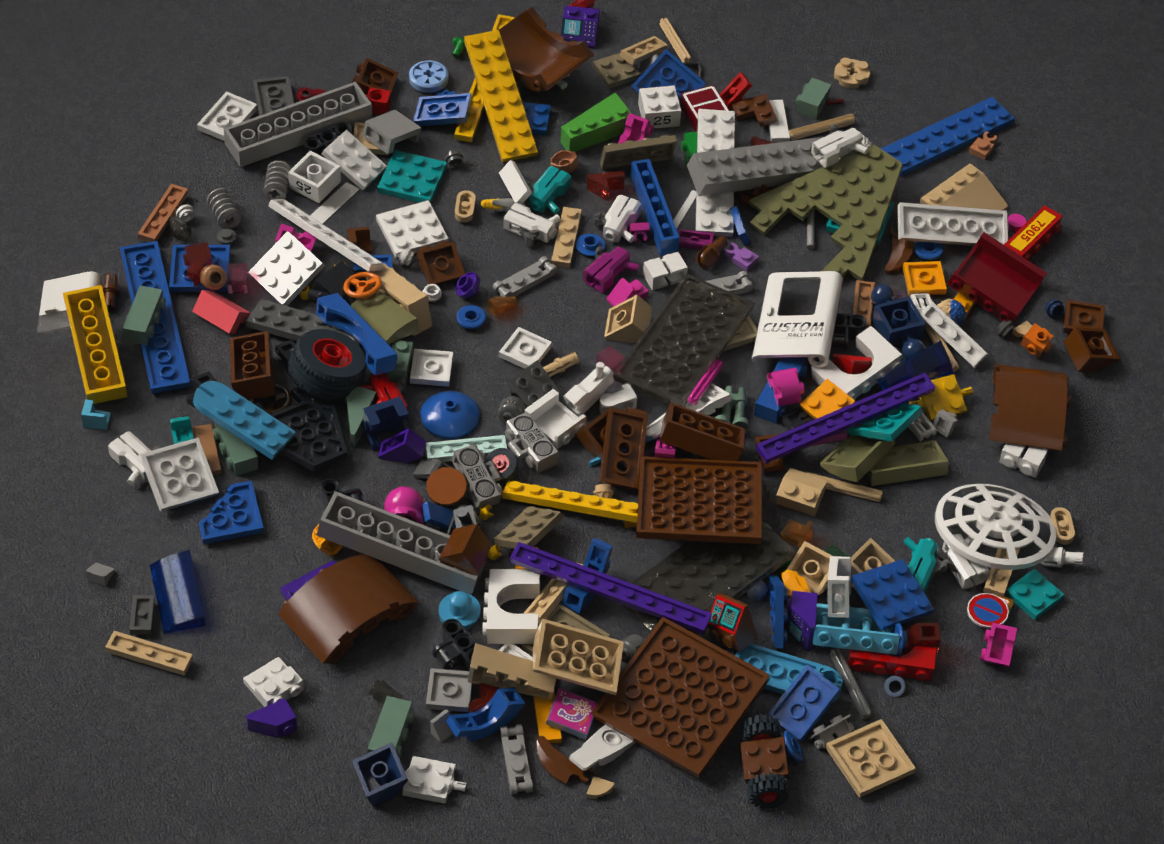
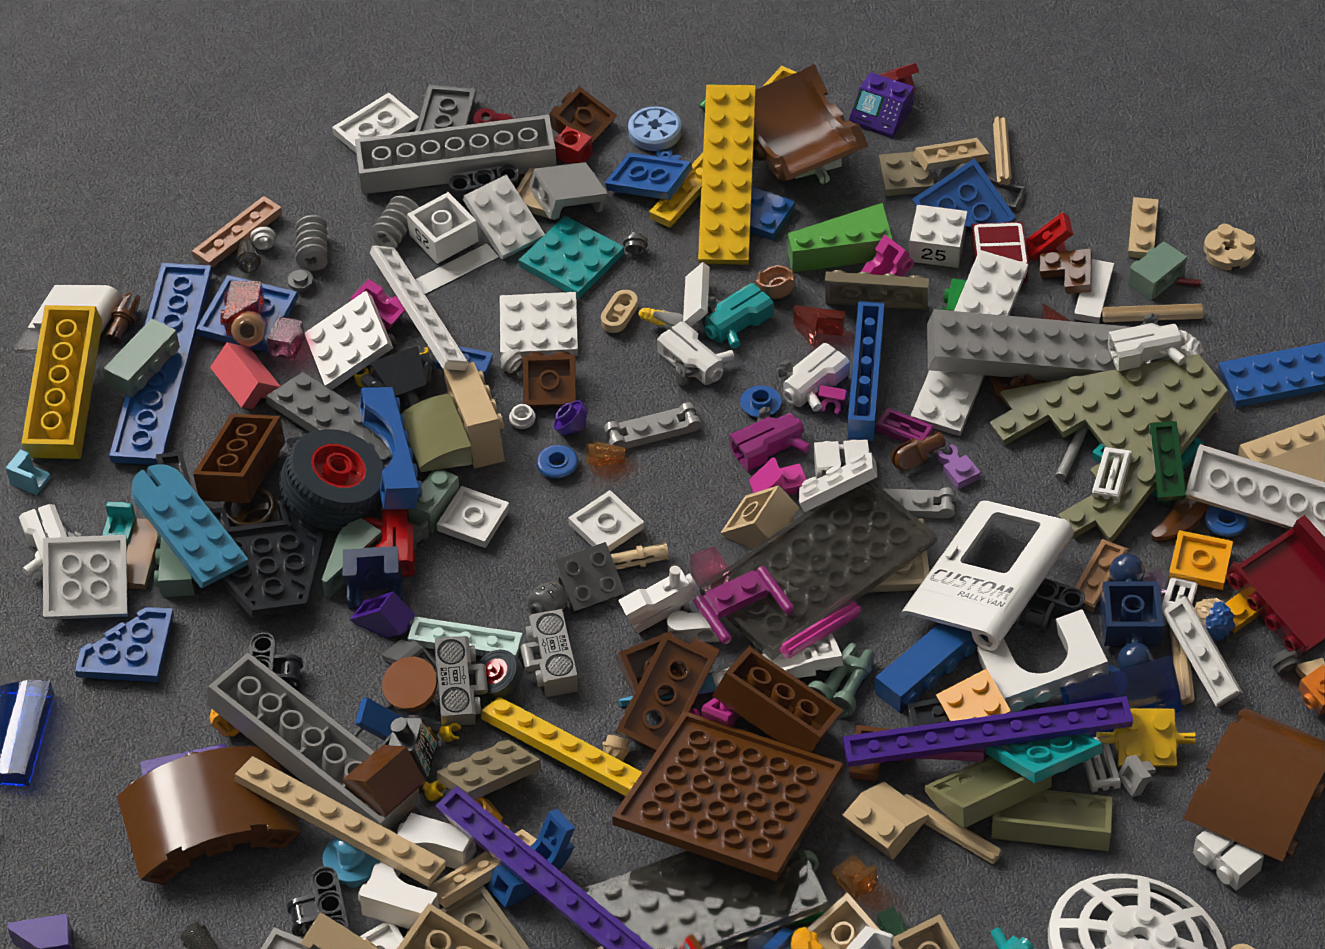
camera: 25 degrees right, 0 degrees up
(274, 682) = (72, 888): white plate -> none
(360, 238) = (462, 324): reddish brown panel -> none
(363, 287) = (429, 388): orange piece -> none
(405, 503) = (340, 696): dark pink tile -> none
(448, 585) = (340, 821): none -> tan plate
(450, 415) = (471, 596): blue dish -> none
(555, 419) = (598, 628): white panel -> none
(566, 237) = (733, 384): tan plate -> none
(642, 372) = (737, 595): none -> magenta plate
(673, 283) = (837, 481): none -> white plate
(684, 208) = (902, 390): white sticker -> none
(740, 225) = (973, 423): blue tile -> none
(786, 386) = (924, 665): dark pink cylinder -> none
(789, 72) = (1142, 226): none -> tan plate
(850, 248) = (1108, 492): none -> white tile
(852, 364) = (1036, 657): red slope -> none
(882, 220) = (1167, 462): none -> dark green piece

